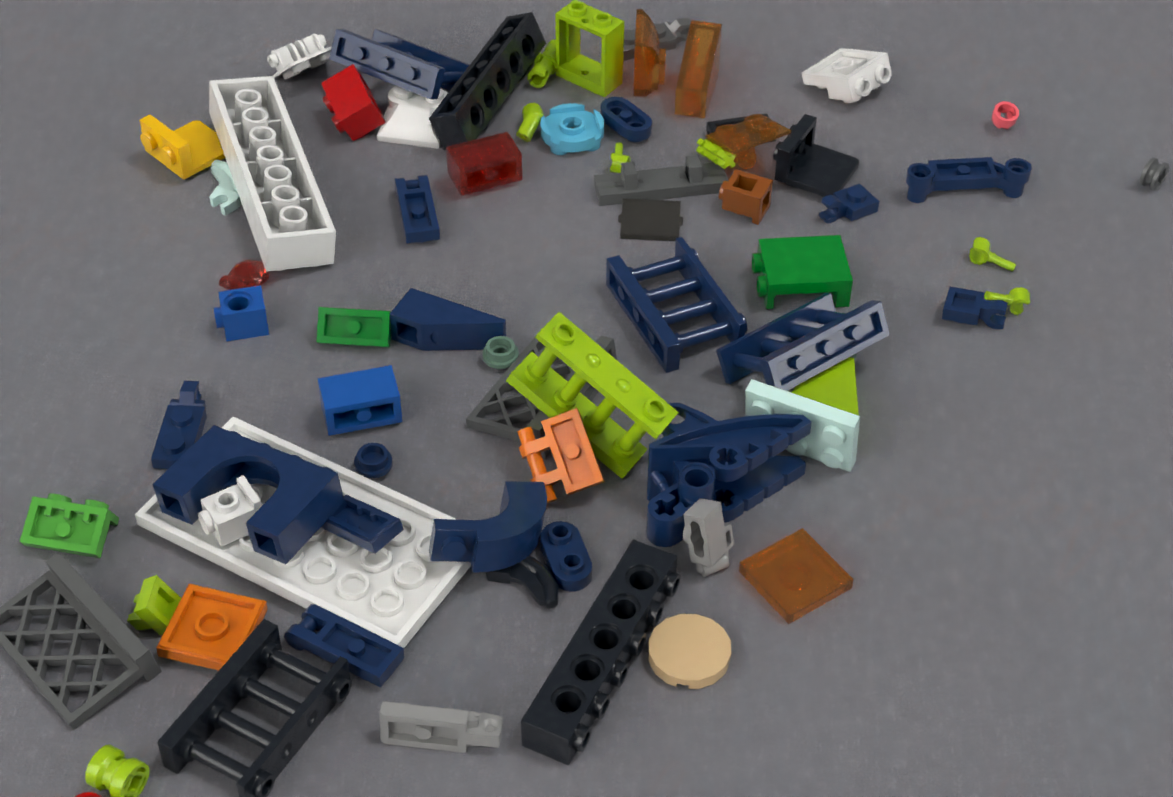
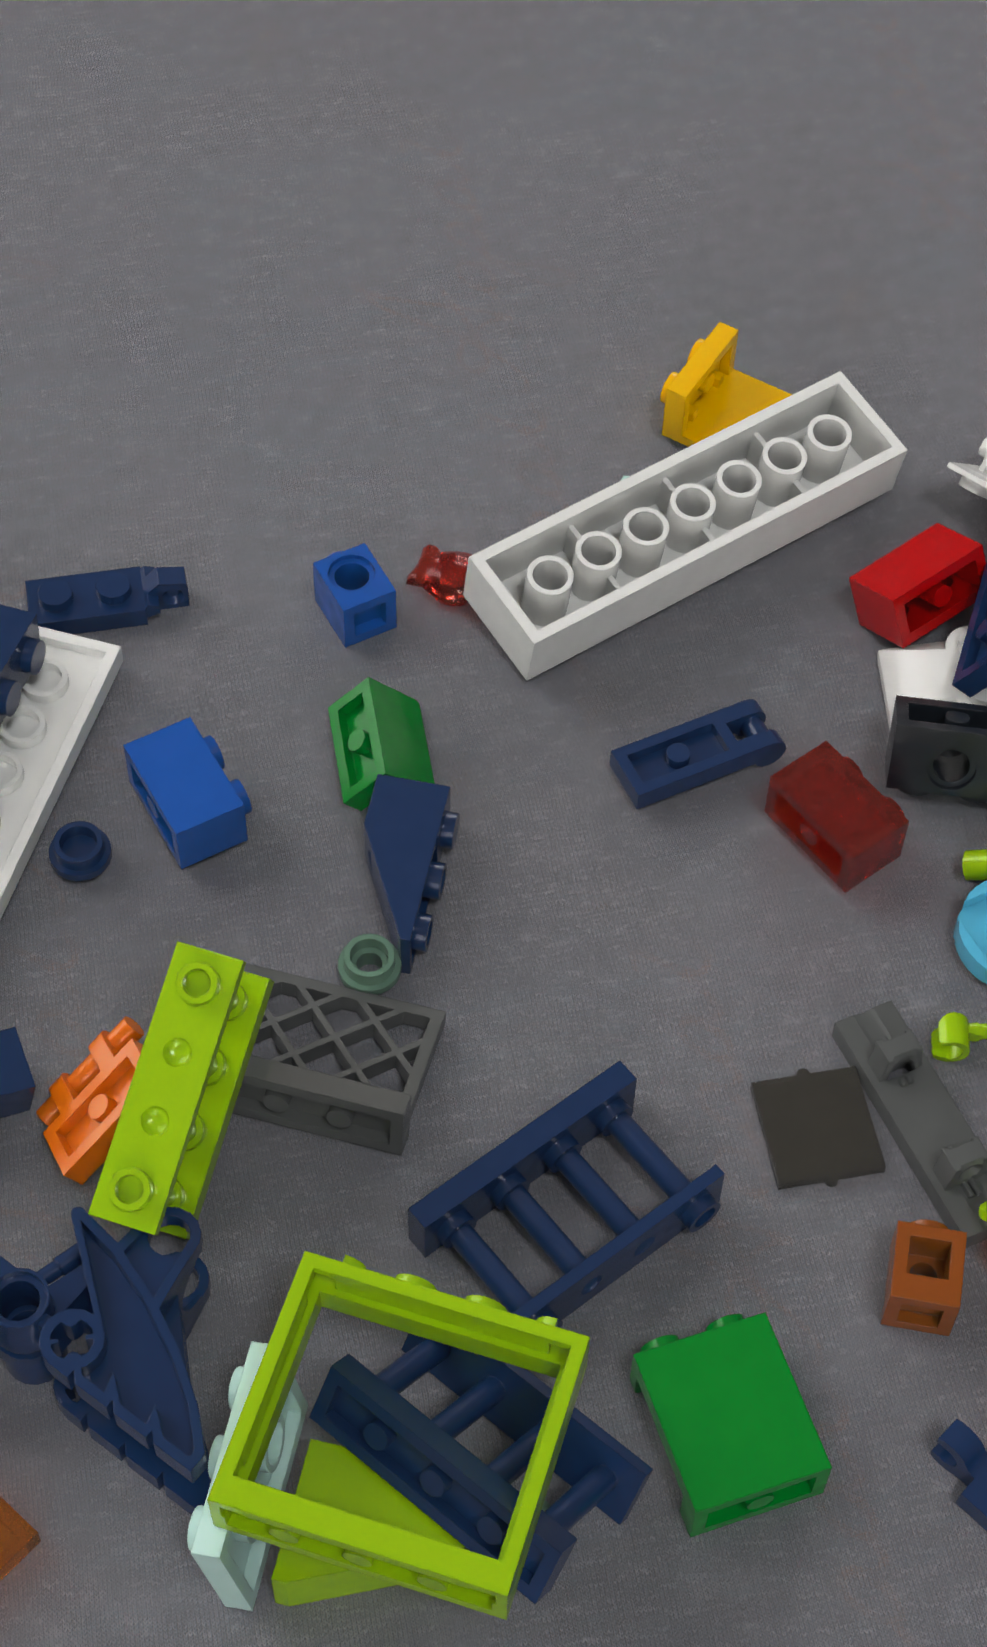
camera: 75 degrees right, 10 degrees up
(835, 284) = (359, 1542): none -> lime window

